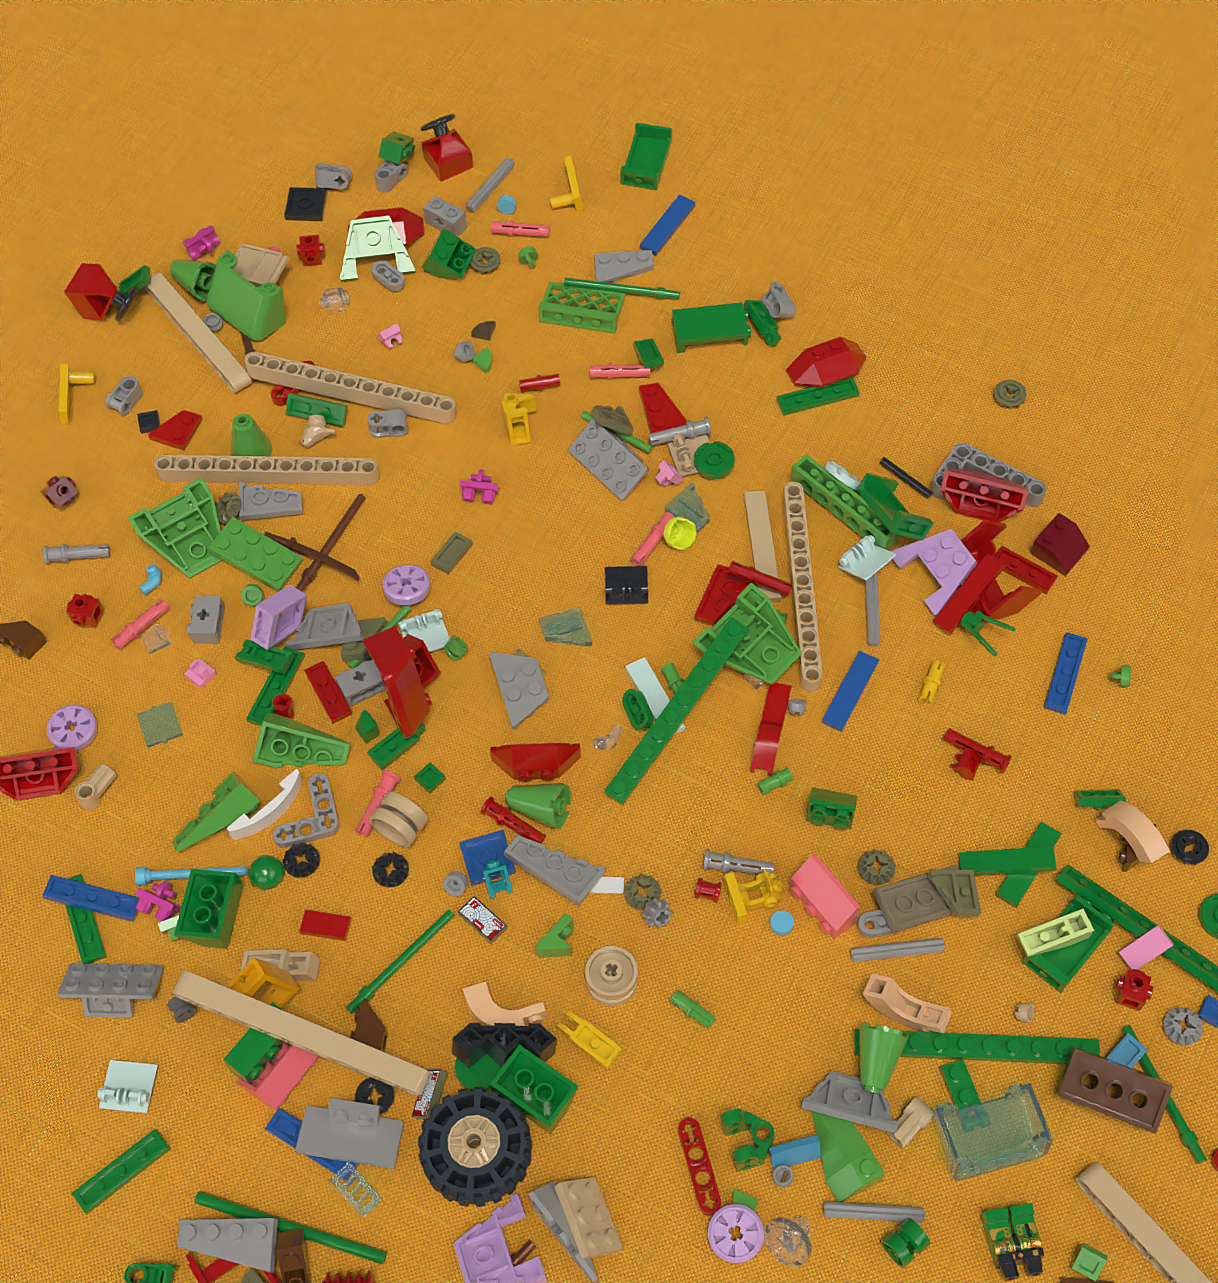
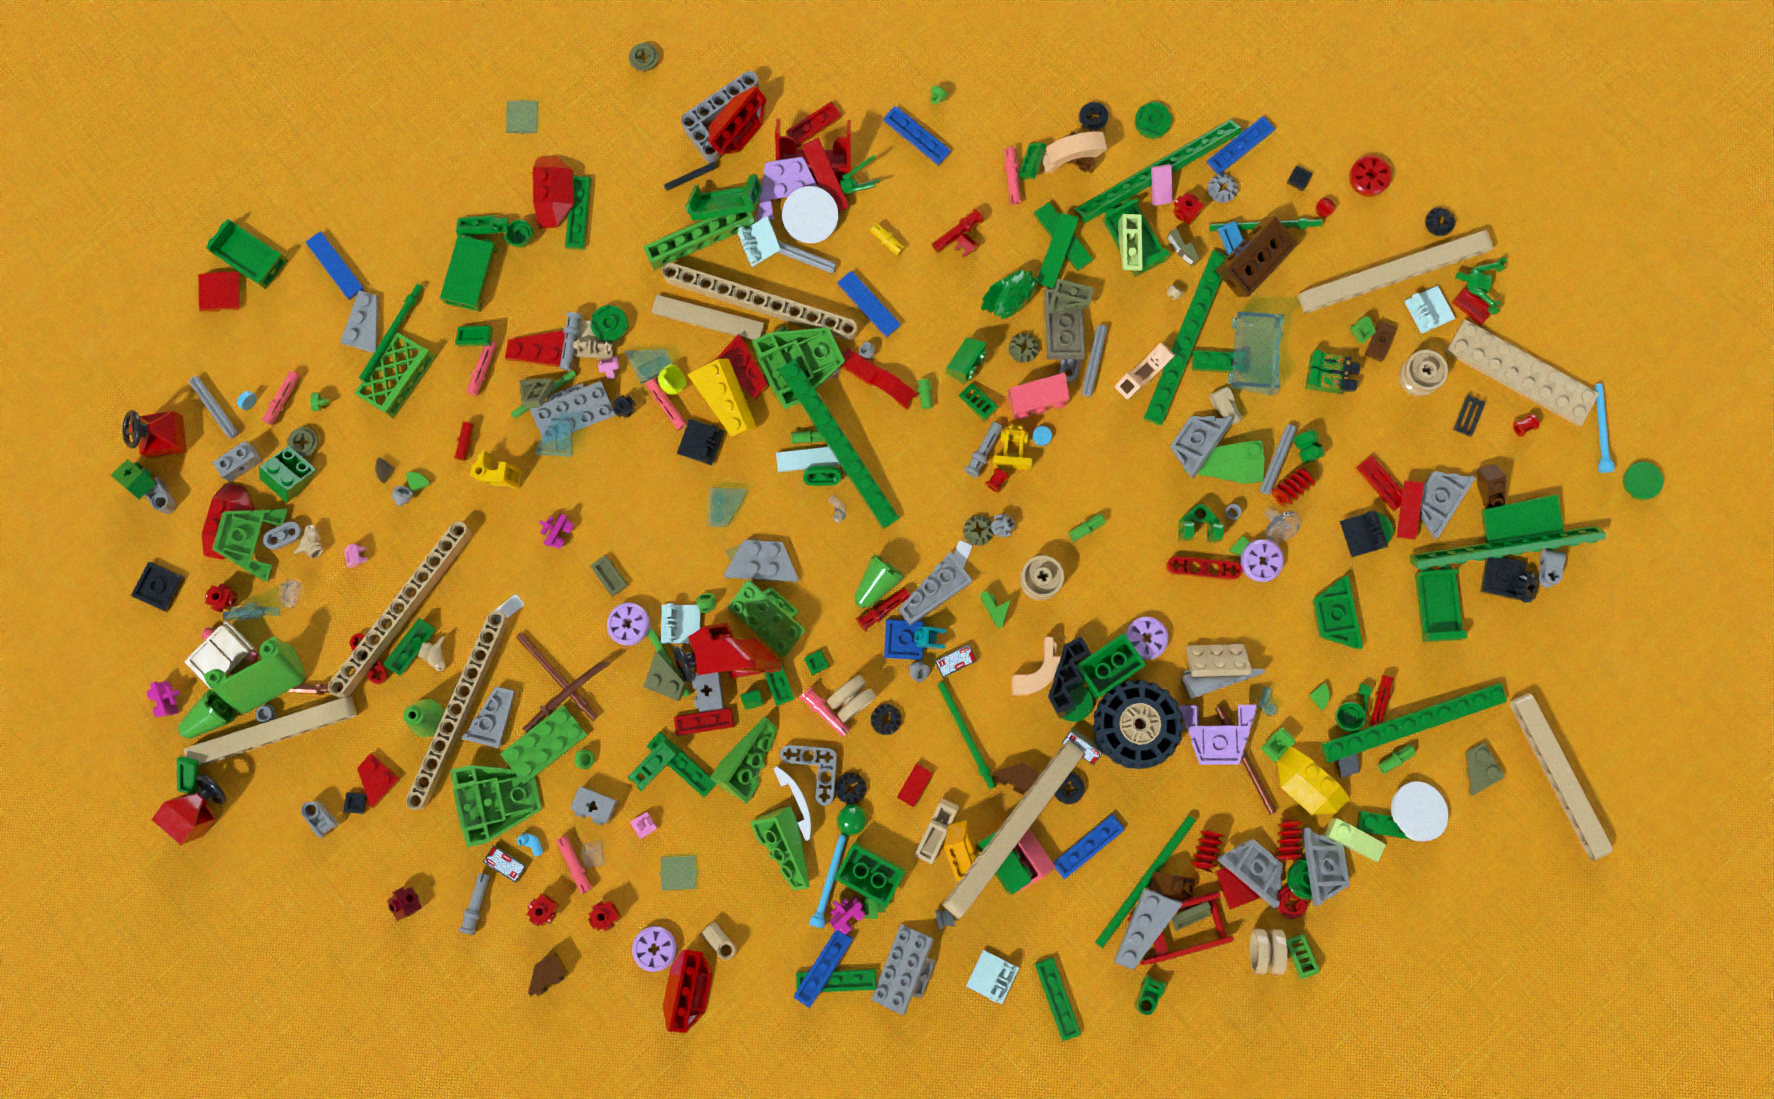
camera: 70 degrees left, 20 degrees up
(66, 379) = (275, 862): yellow piece -> none
(93, 667) = (611, 915): none -> red brick
(124, 565) = (505, 863): none -> tile
(231, 503) = (487, 750): olive gear -> none
(270, 629) = (624, 741): lavender window -> none
(283, 705) = (704, 759): red bush -> none
(305, 273) = (250, 611): none -> clear light blue wing
(327, 627) = (645, 703): light grey wing -> none
(331, 177) = (136, 552): light grey piece -> none
(350, 1134) = (1095, 816): light grey bracket -> none
(362, 1183) = (1123, 830): clear light blue slope -> none
(389, 298) = (310, 543): none -> tan animal
(389, 423) = (452, 585): light grey piece -> none
(389, 481) = (509, 607): none -> white sticker
(463, 711) = (768, 616): none -> bright green bracket
(536, 760) = (838, 572): red wedge -> none
(574, 455) = (557, 439): none -> clear light blue wing
(575, 195) = (265, 340): yellow piece -> none
(590, 1040) = (1084, 611): yellow hinge -> none
(591, 1139) = (1158, 637): none -> lavender wheel
(601, 150) = (218, 291): none -> red slope
(633, 501) = (624, 406): none -> black gear
(682, 585) = (723, 394): none -> yellow wedge
(767, 581) = (739, 338): red pin -> none
(769, 352) = (519, 233): none -> green hair
(778, 302) = (468, 204): light grey piece -> none
(784, 855) = (973, 406): none -> green slope
(795, 1152) = (1219, 496): dark azure tile -> none
(842, 474) = (672, 226): light aqua tile -> none
(847, 1242) = (1292, 486): none -> red piece
(879, 1055) = (1176, 406): bright green cone -> none
(892, 317) = (522, 116): none -> clear light blue piece
(919, 596) = (810, 214): none -> white tile
(930, 826) = (1009, 294): none -> green head
(1060, 544) = (804, 86): dark red slope -> none
(1078, 781) = (1012, 175): none -> coral pin
(1082, 1005) = (1186, 252): none -> olive slope

